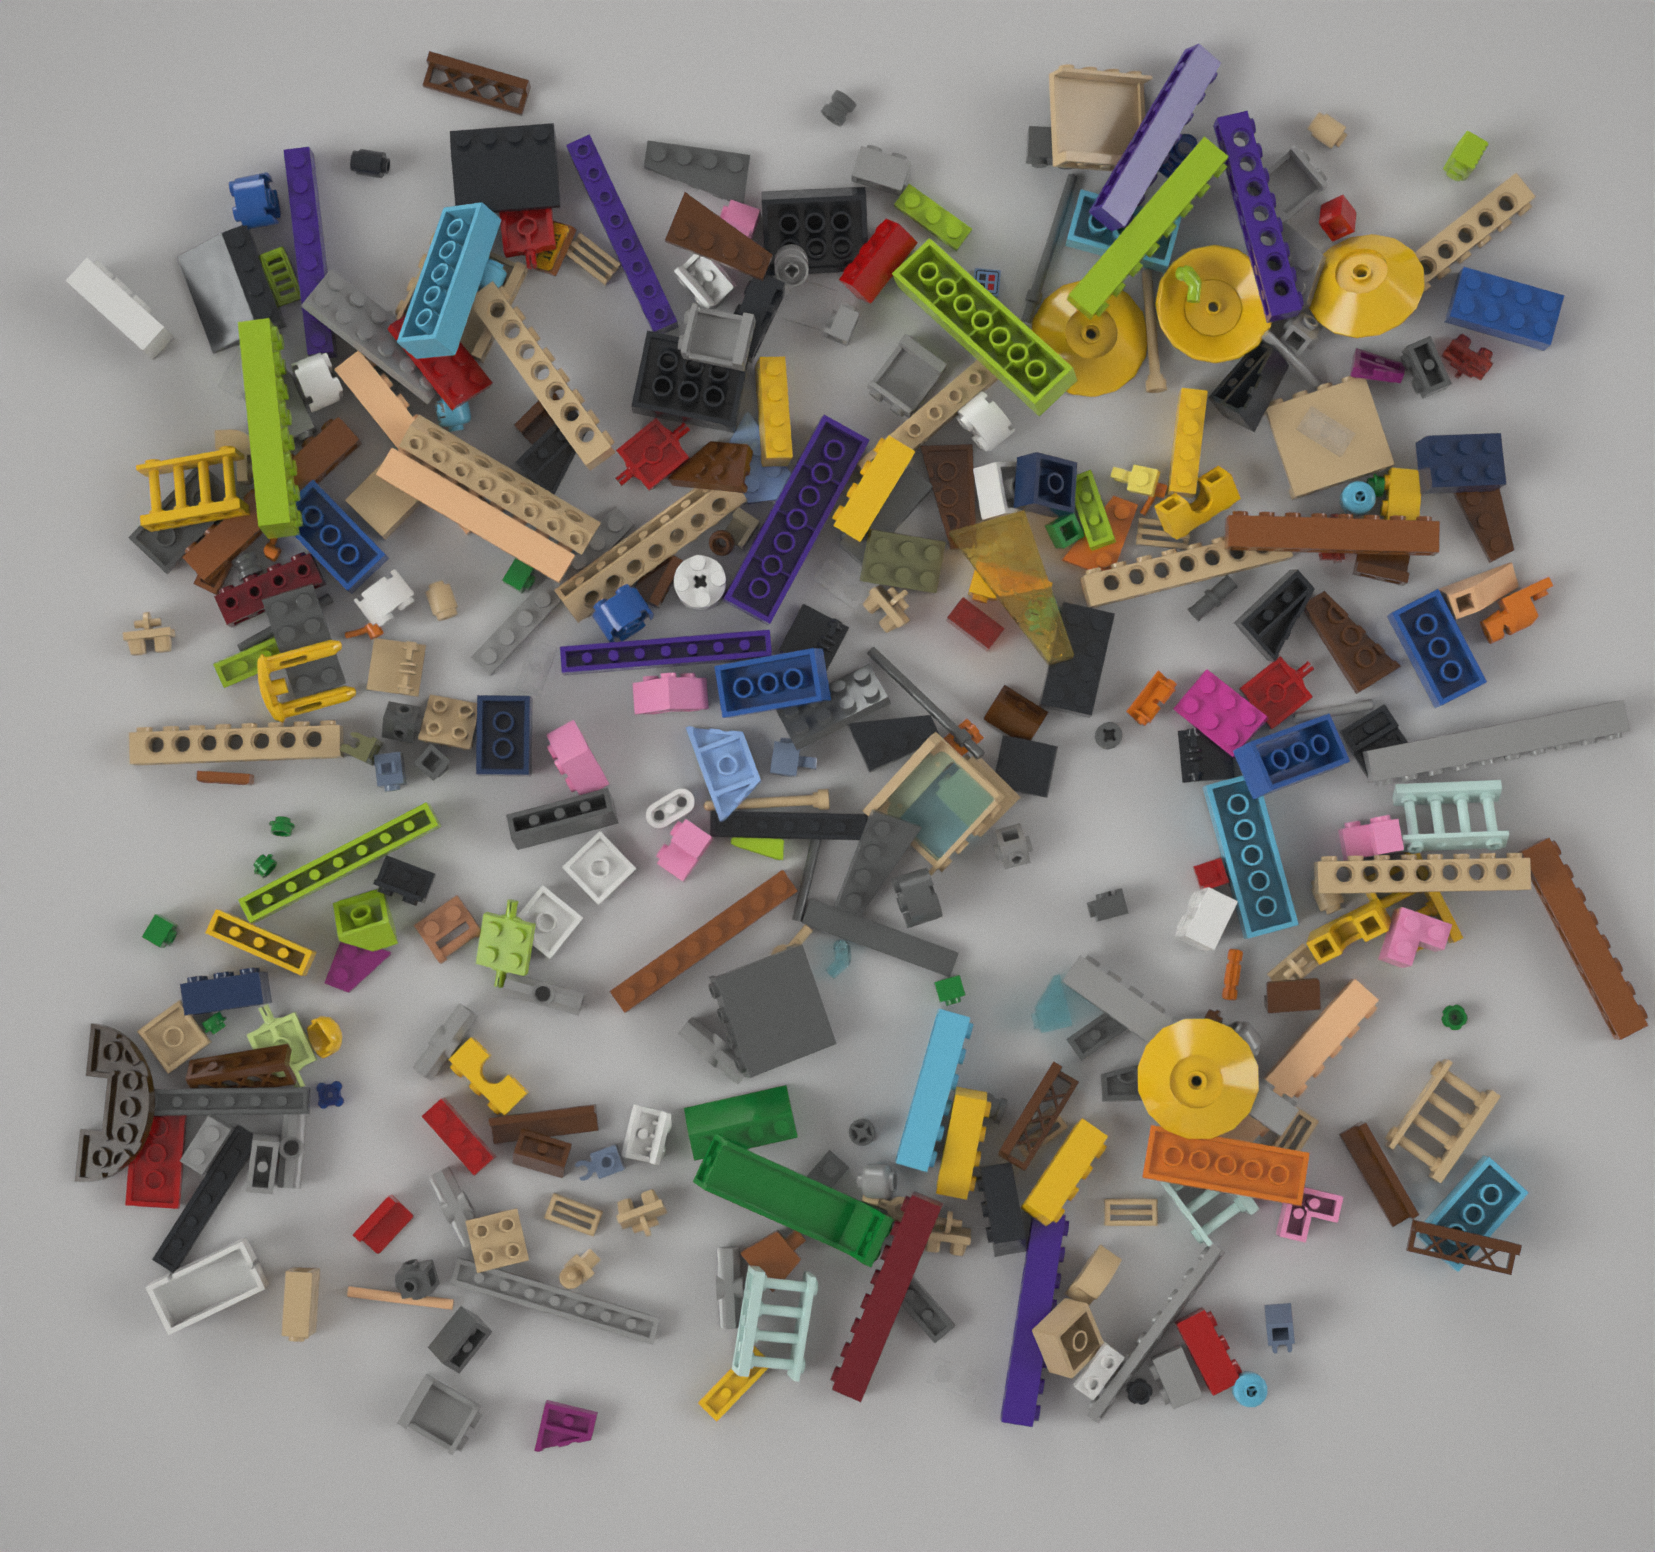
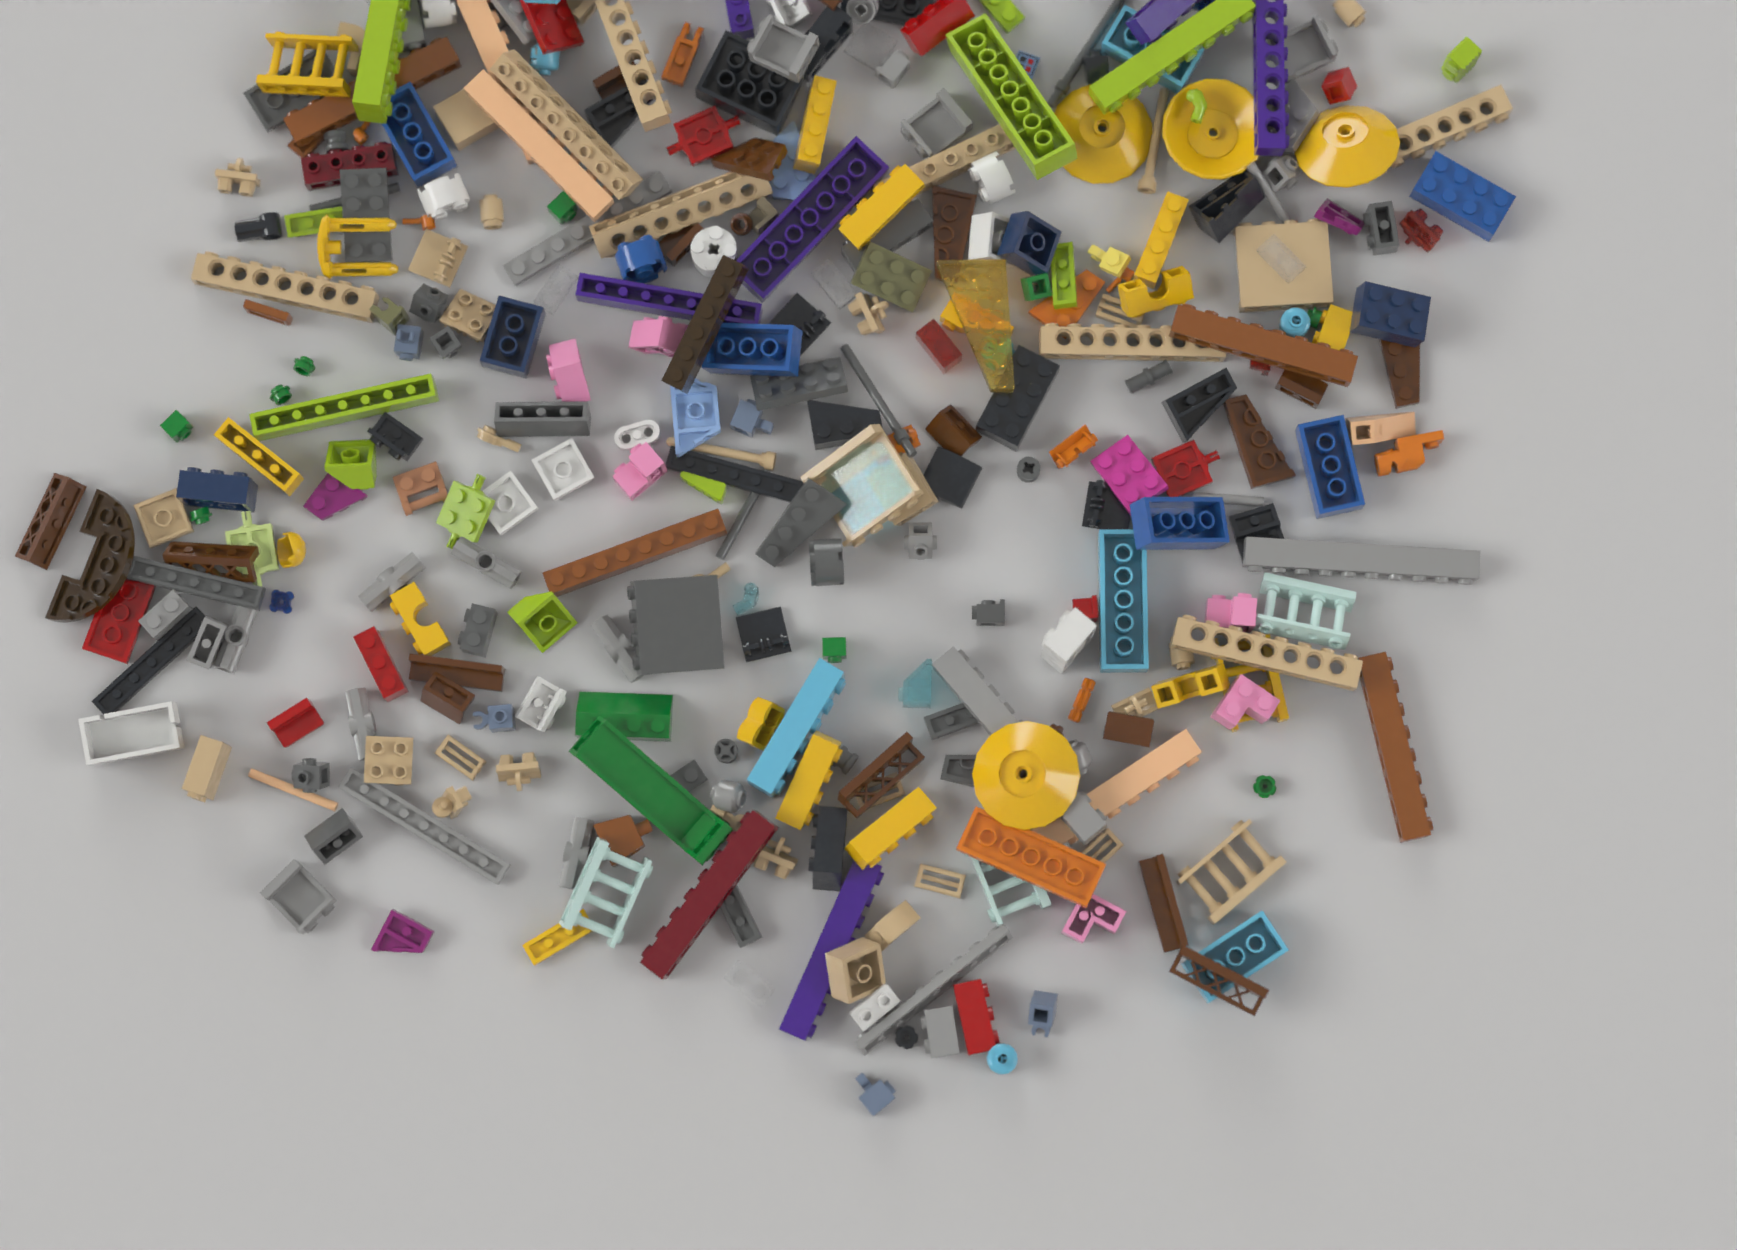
camera: 20 degrees right, 5 degrees down
(53, 1073) = (52, 522): none -> reddish brown fence
(194, 682) = (265, 227): none -> black piece
(507, 851) = (489, 435): none -> tan plate
(555, 1071) = (478, 630): none -> dark grey brick
(604, 370) = (682, 56): none -> orange hinge
(621, 1040) = (542, 619): none -> lime slope
(715, 671) = (705, 324): none -> dark brown brick
(867, 992) = (763, 634): none -> black hinge
(880, 937) = (786, 590): dark grey tile -> none
(892, 1093) = (760, 723): none -> yellow brick
(1066, 266) = (1095, 65): none -> black brick
(1124, 1464) = (876, 1095): none -> sand blue brick

